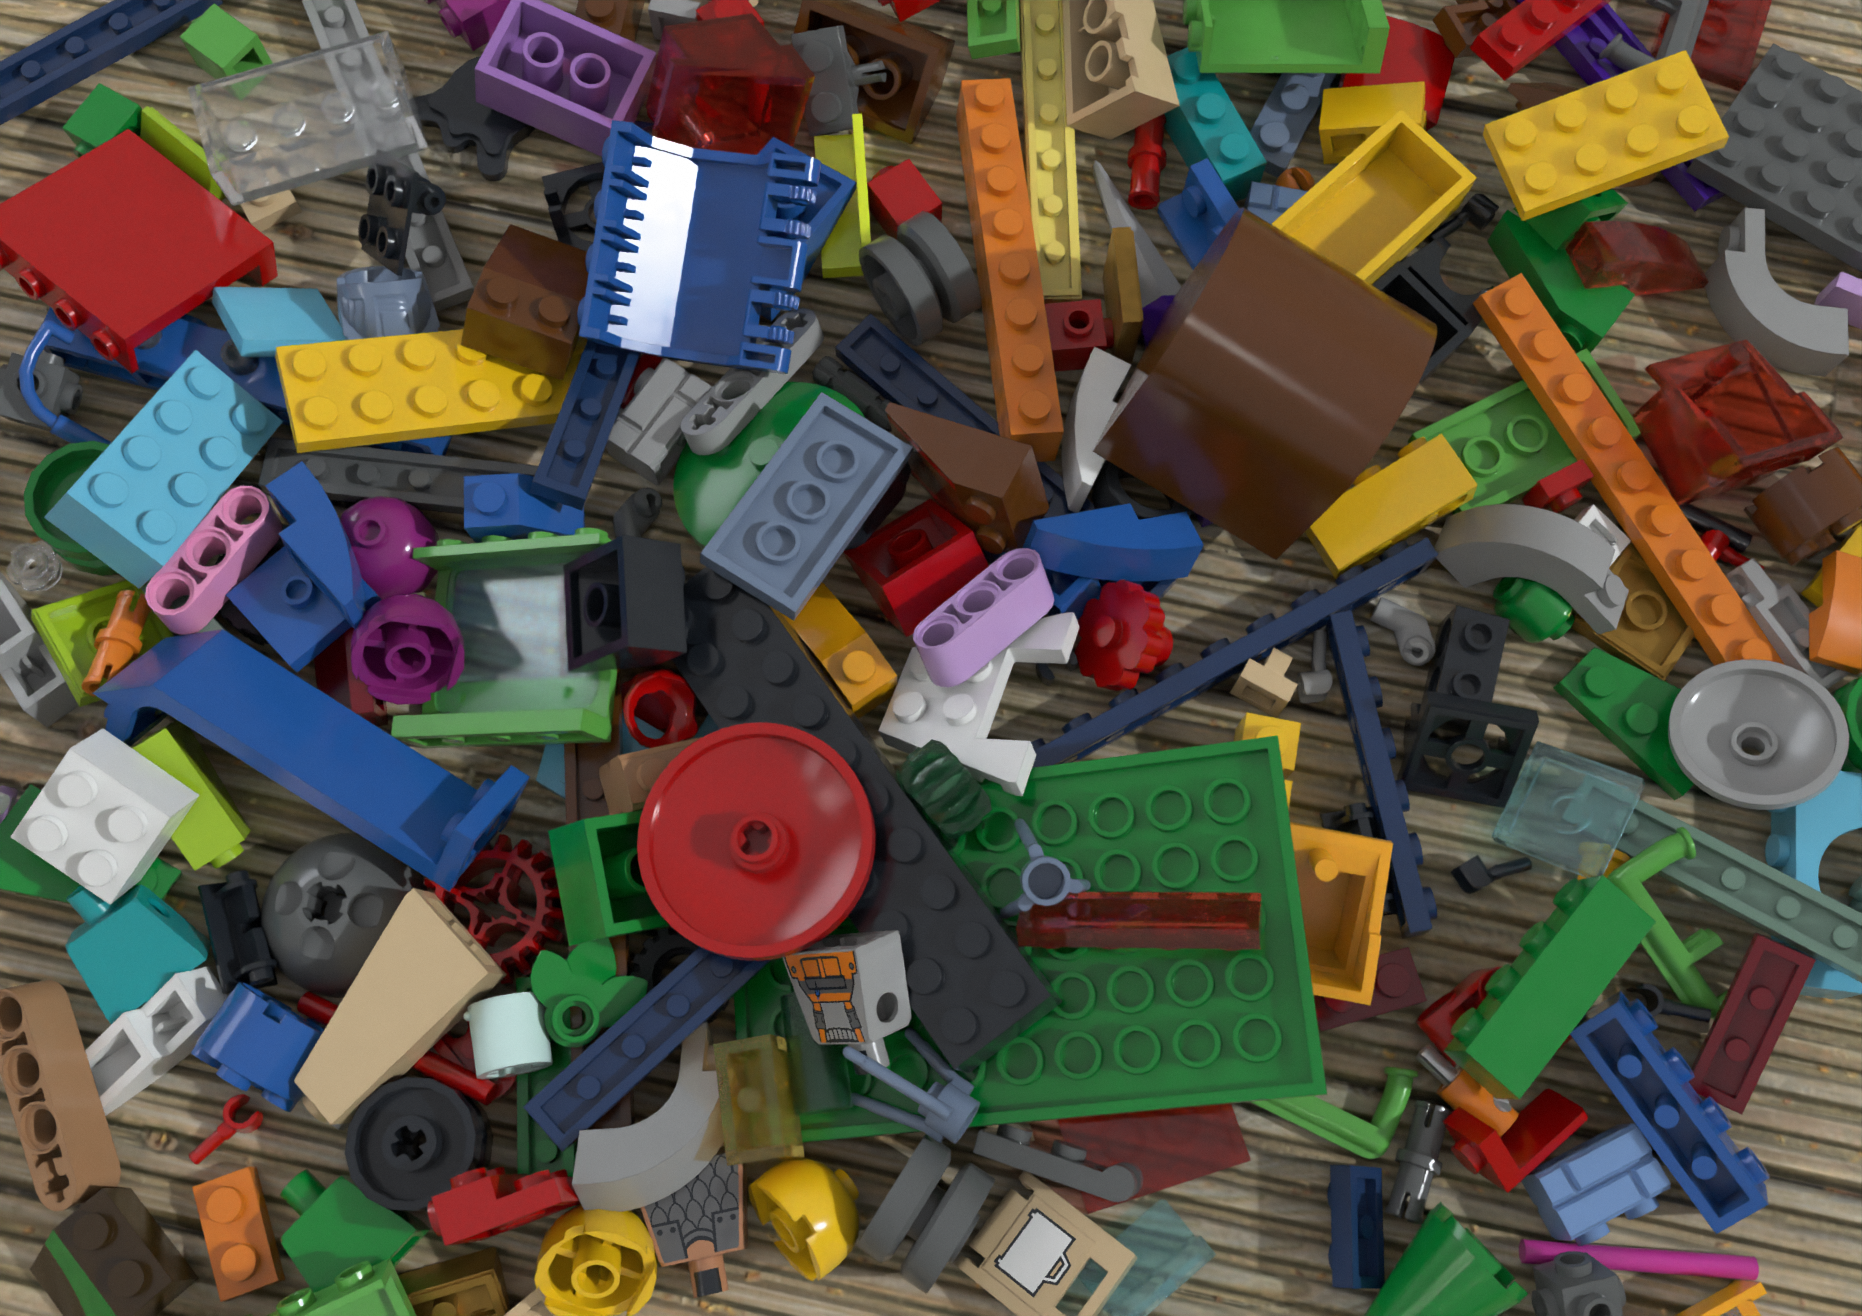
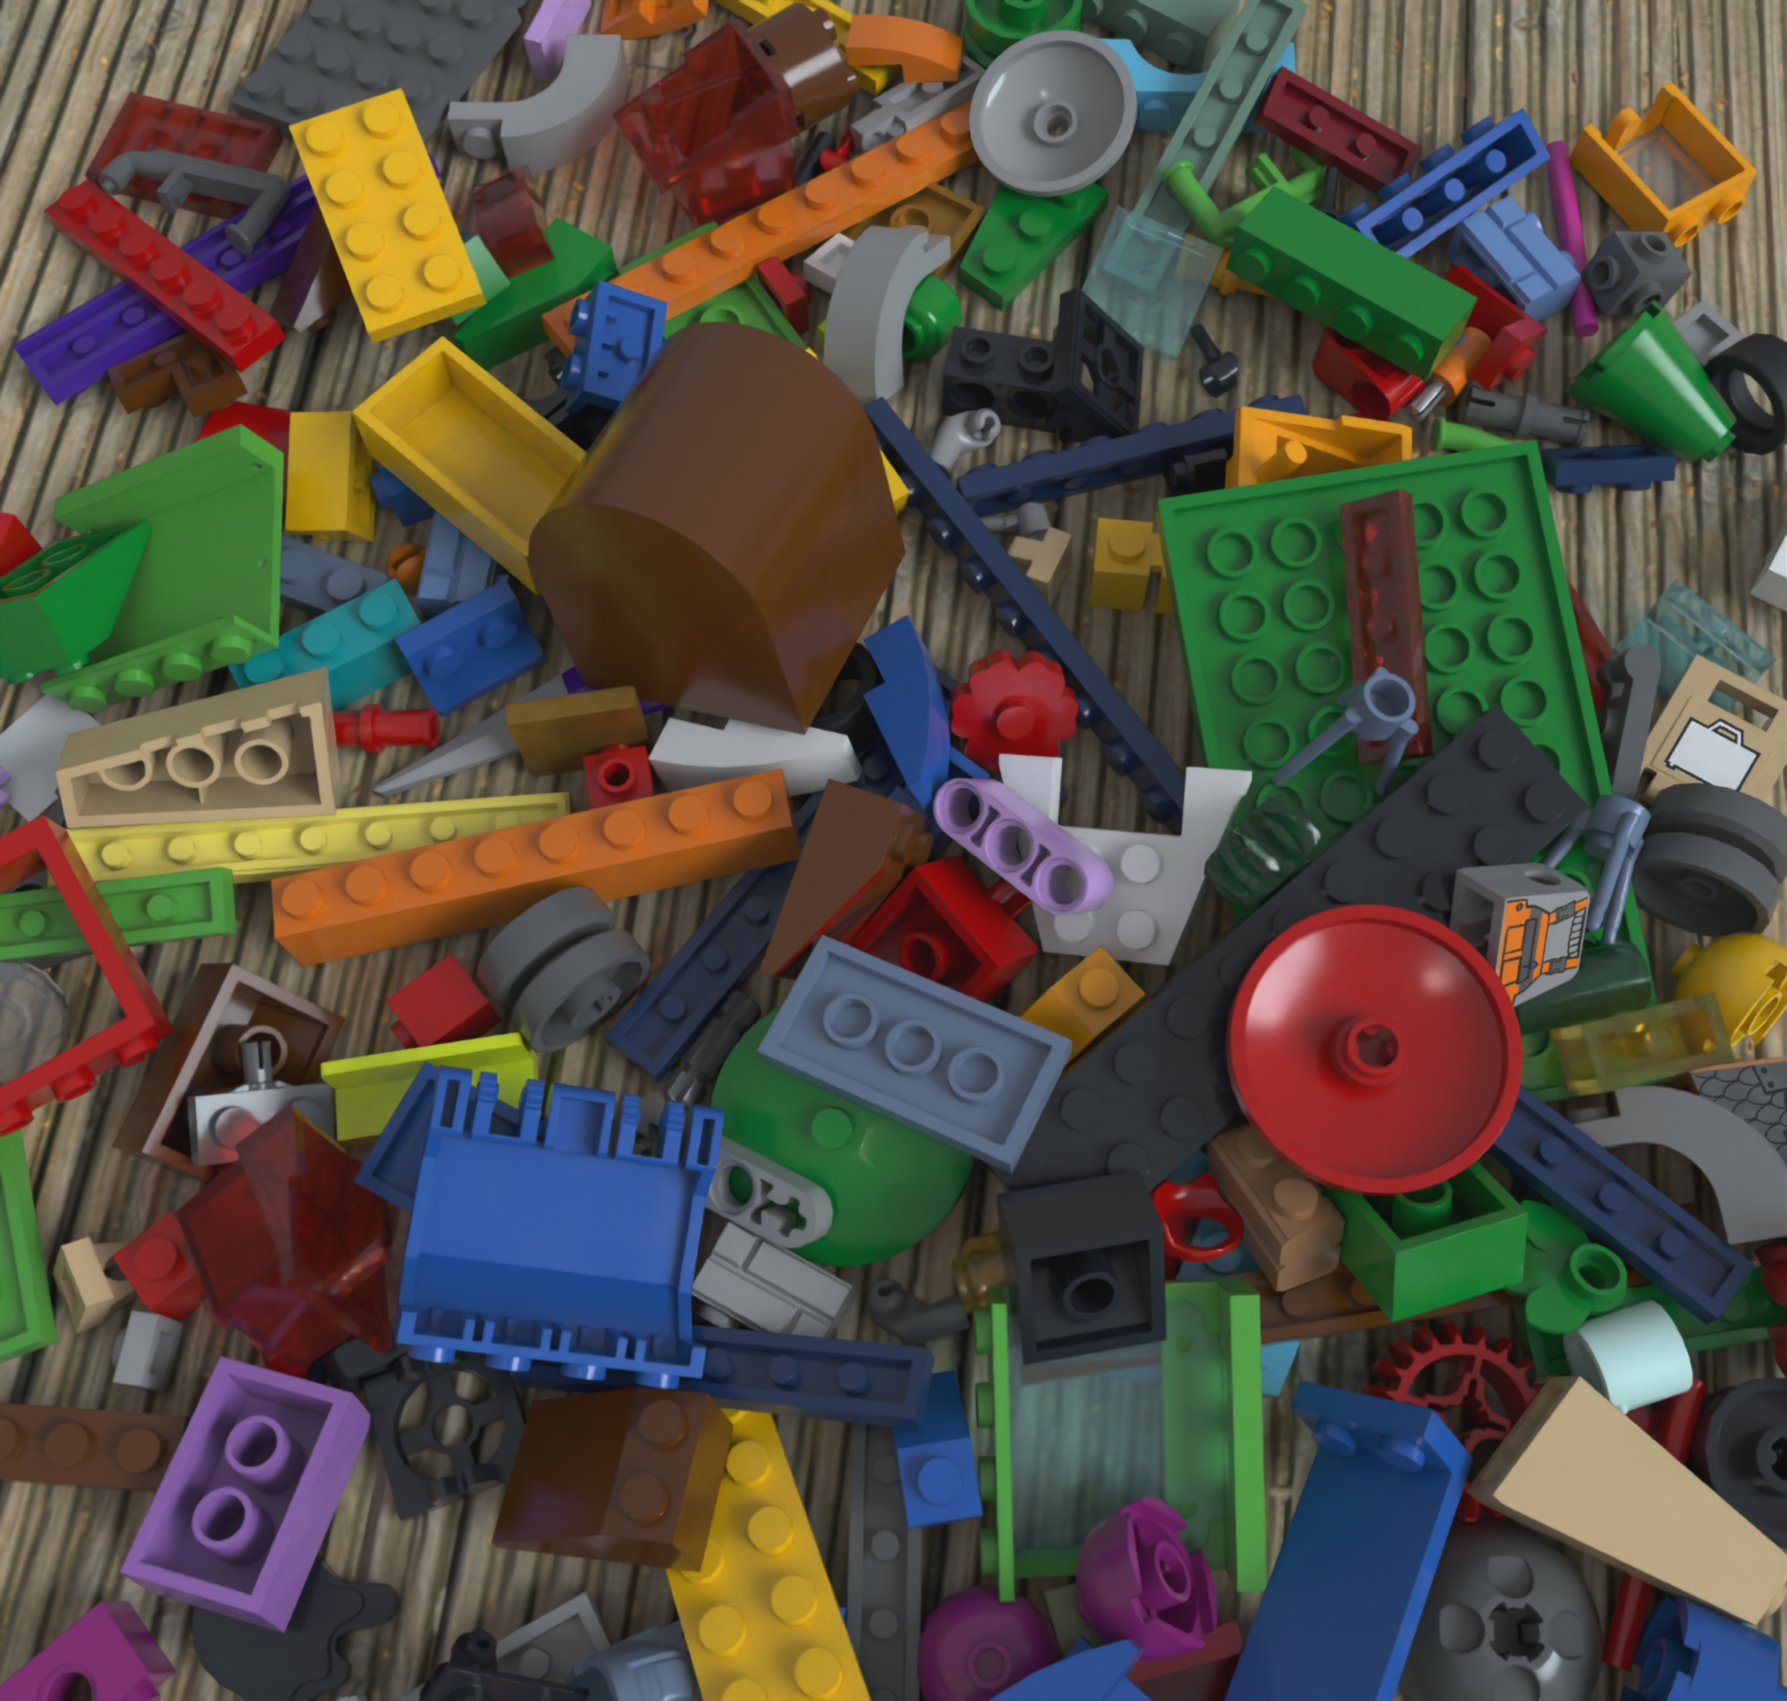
camera: 90 degrees left, 5 degrees down
(1475, 323) = (613, 344): none -> blue bracket

